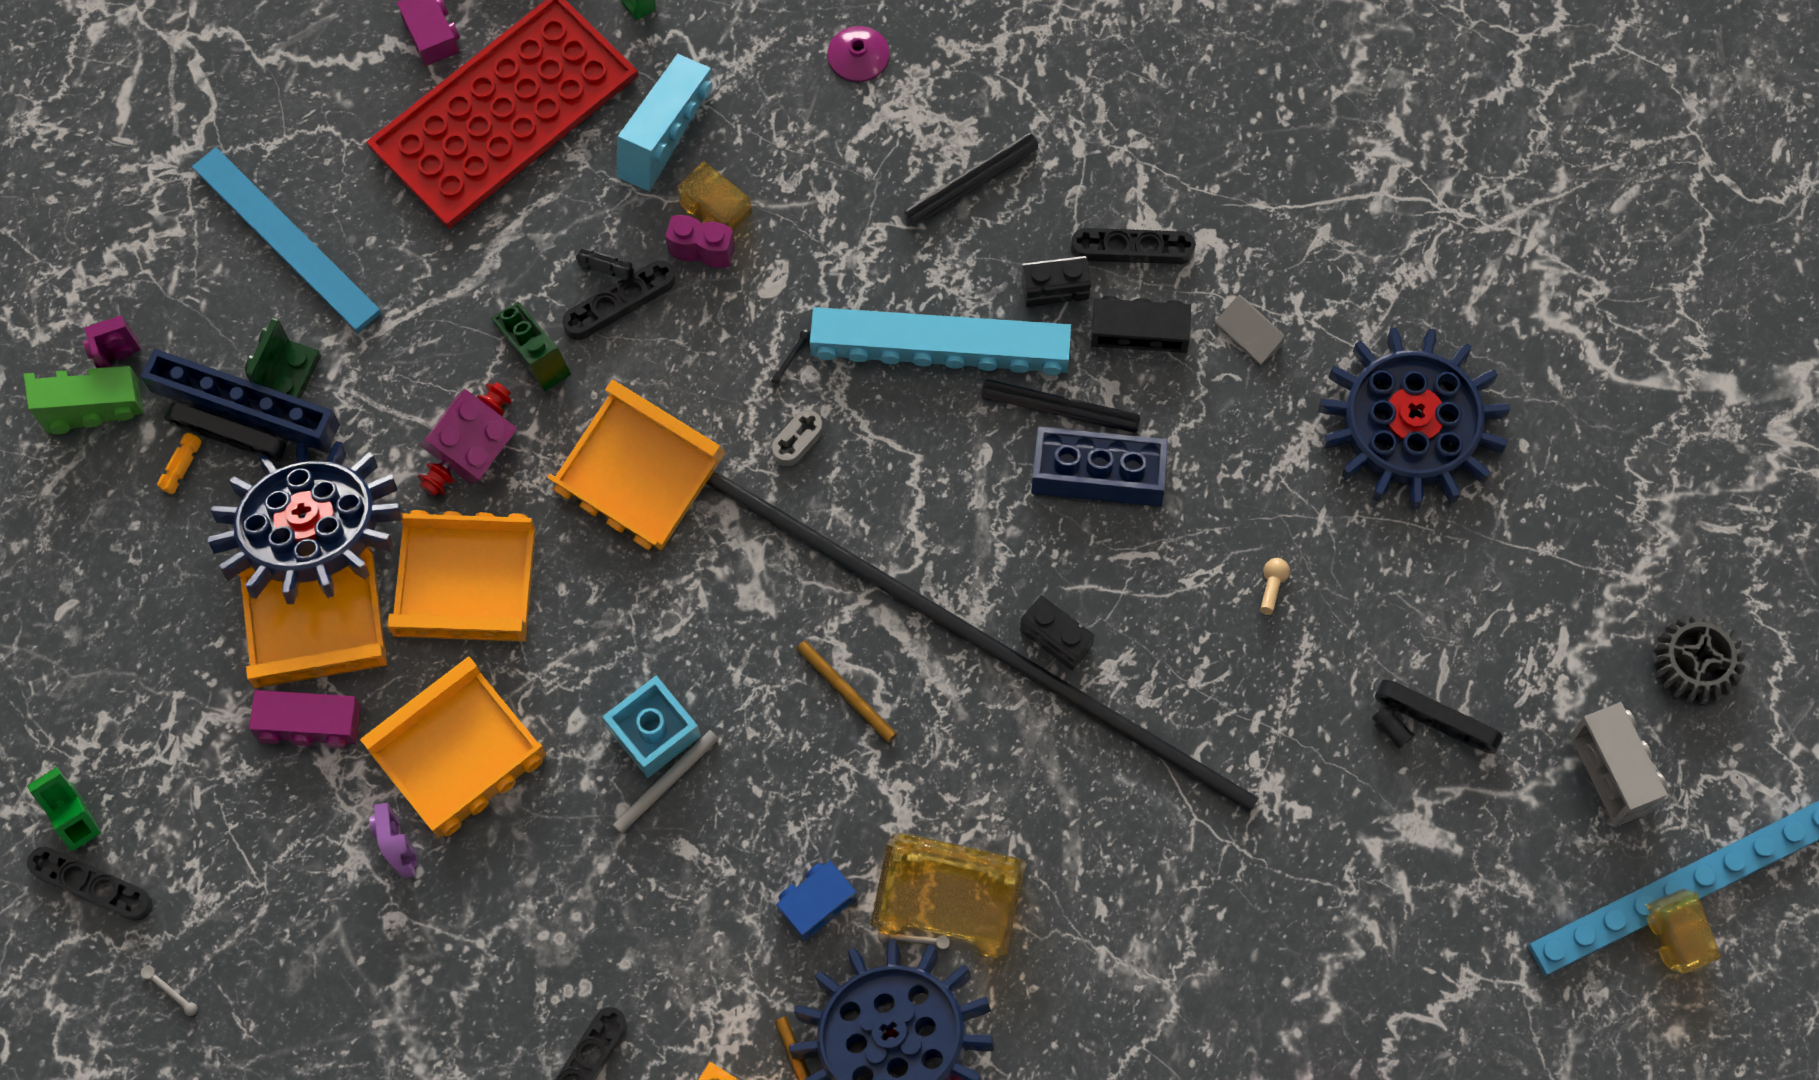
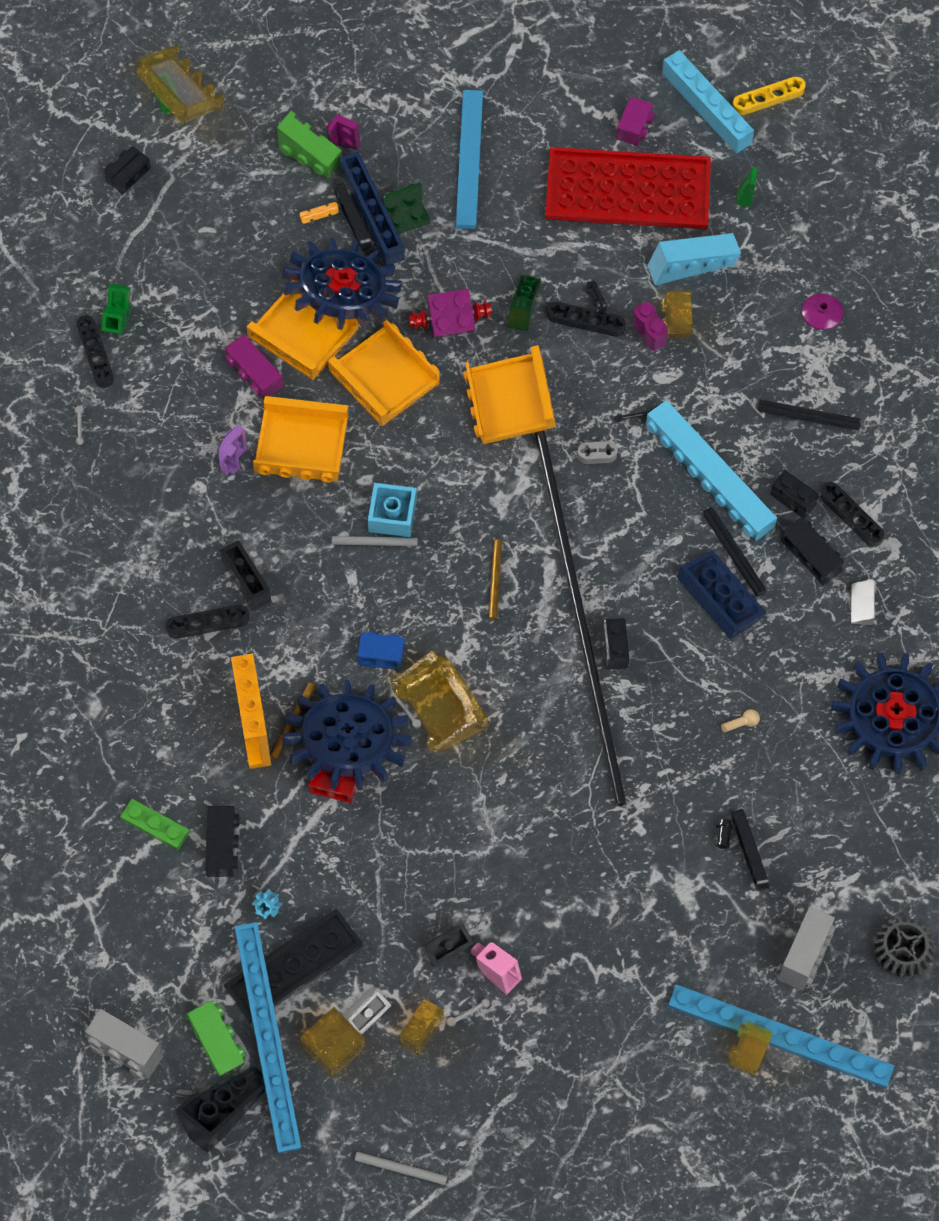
camera: 45 degrees right, 5 degrees down
(570, 971) = (245, 575): none -> black brick

